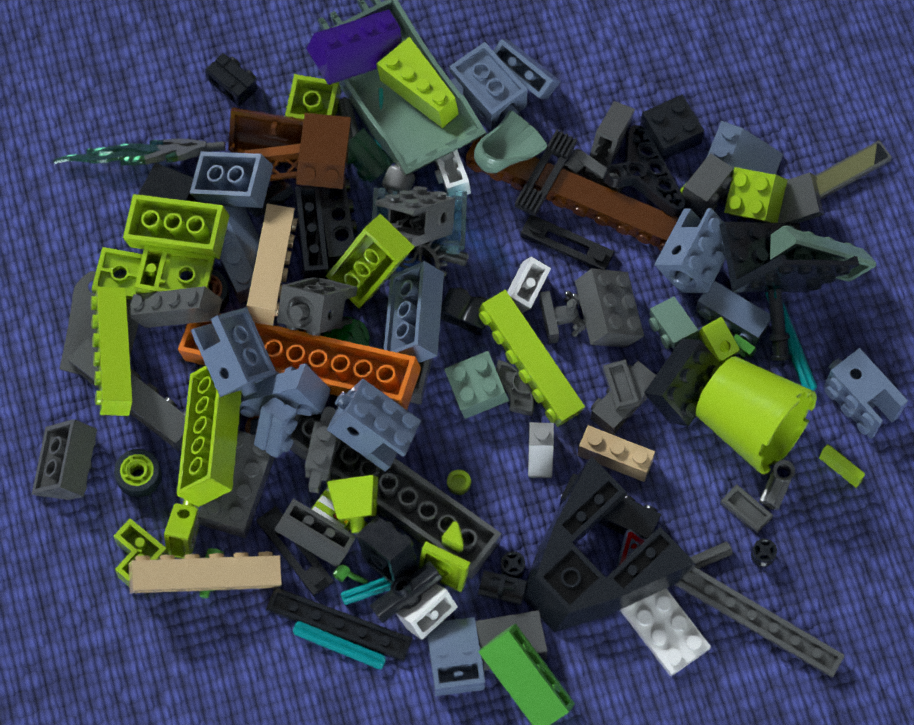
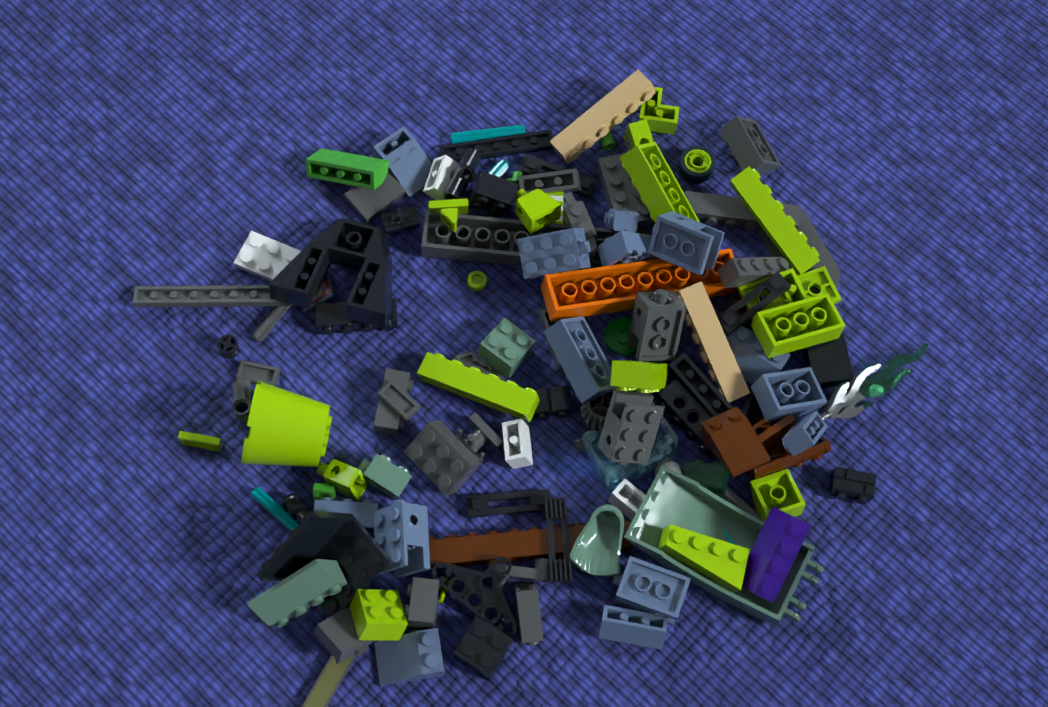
camera: 145 degrees right, 0 degrees up
(169, 273) = (775, 285): none -> black container
(250, 125) = (804, 433): none -> sand blue brick
(514, 560) = (400, 239): black wheel -> none
(540, 450) = (432, 332): light grey slope -> none
(616, 453) = (375, 356): tan brick -> none
(681, 381) = (352, 430): black brick -> none
(859, 387) = (211, 501): sand blue torso -> none

